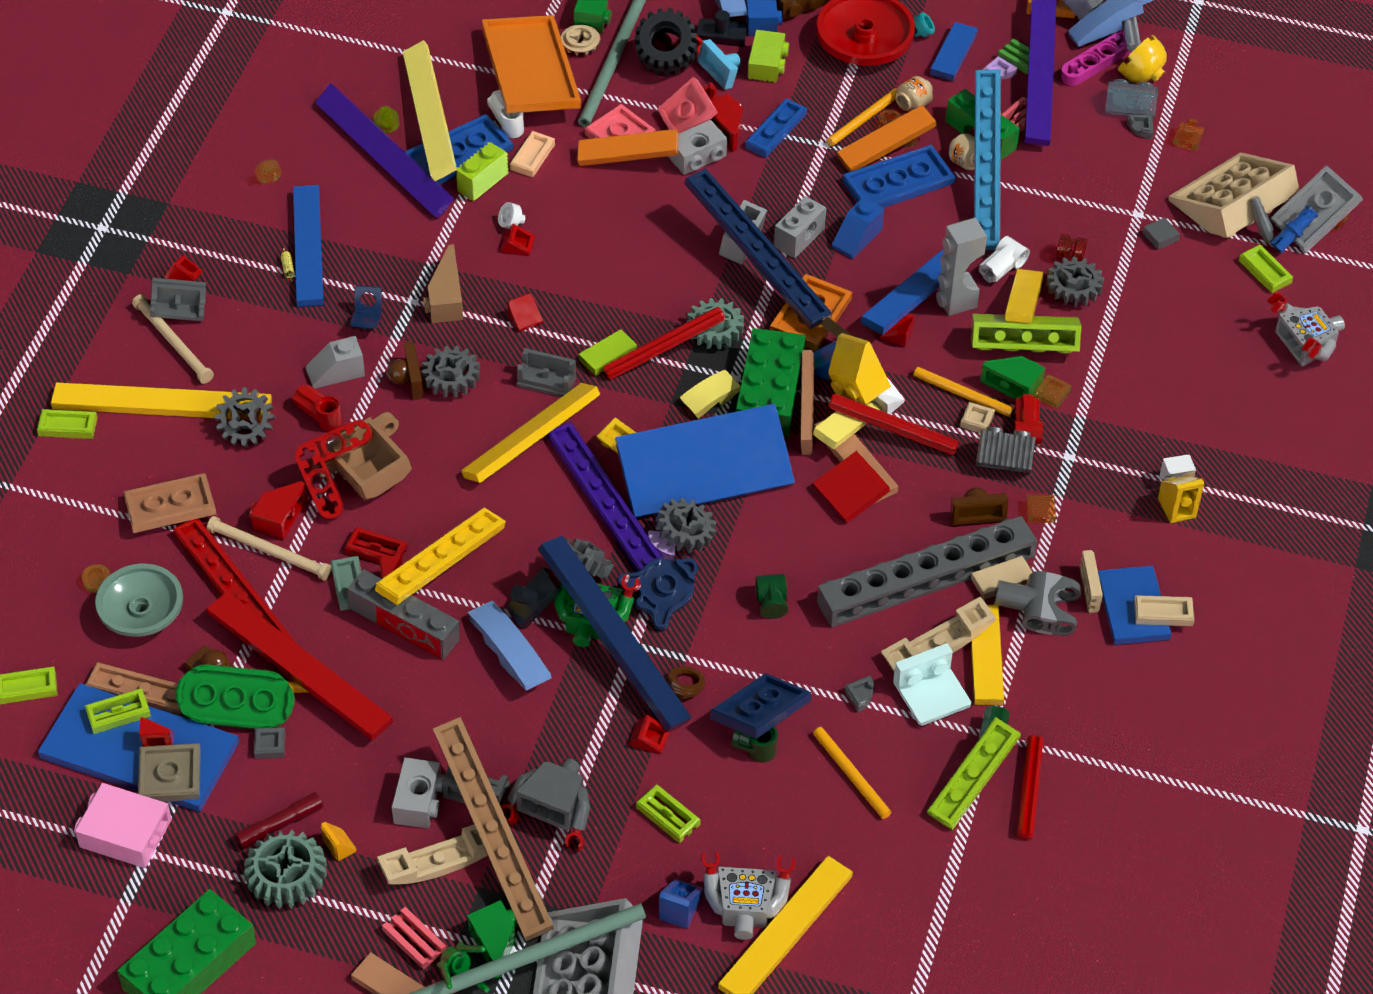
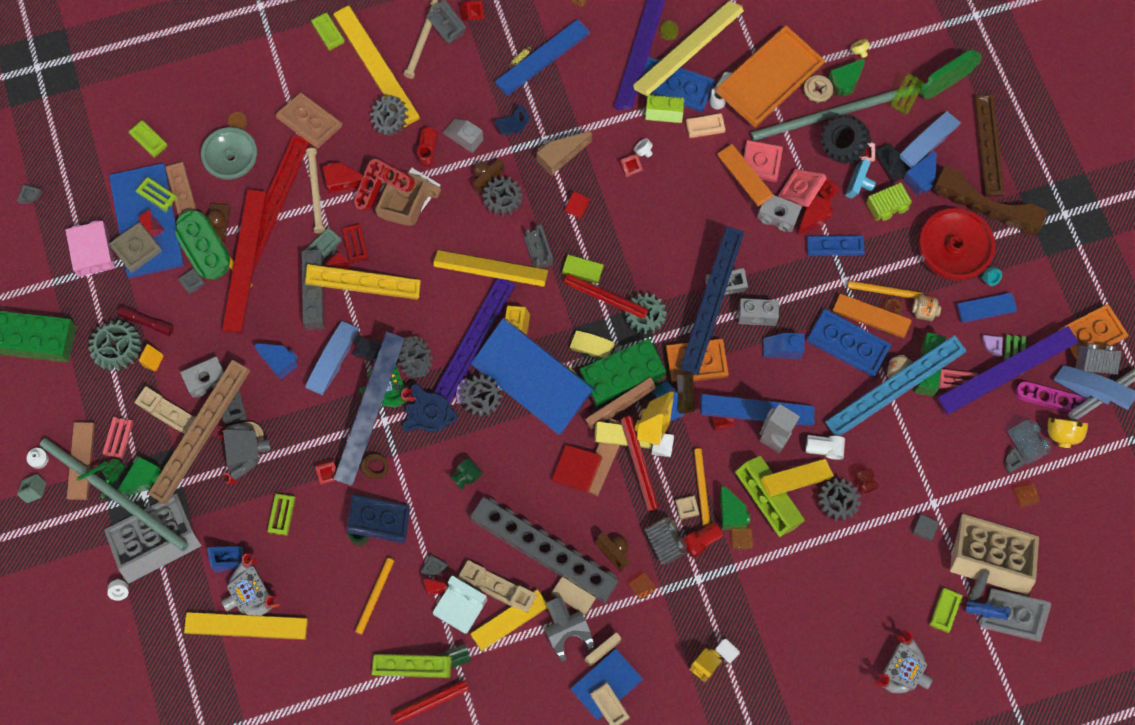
camera: 55 degrees right, 20 degrees up
(458, 699) = (278, 358): none -> blue slope
(888, 701) = (435, 586): none -> red slope

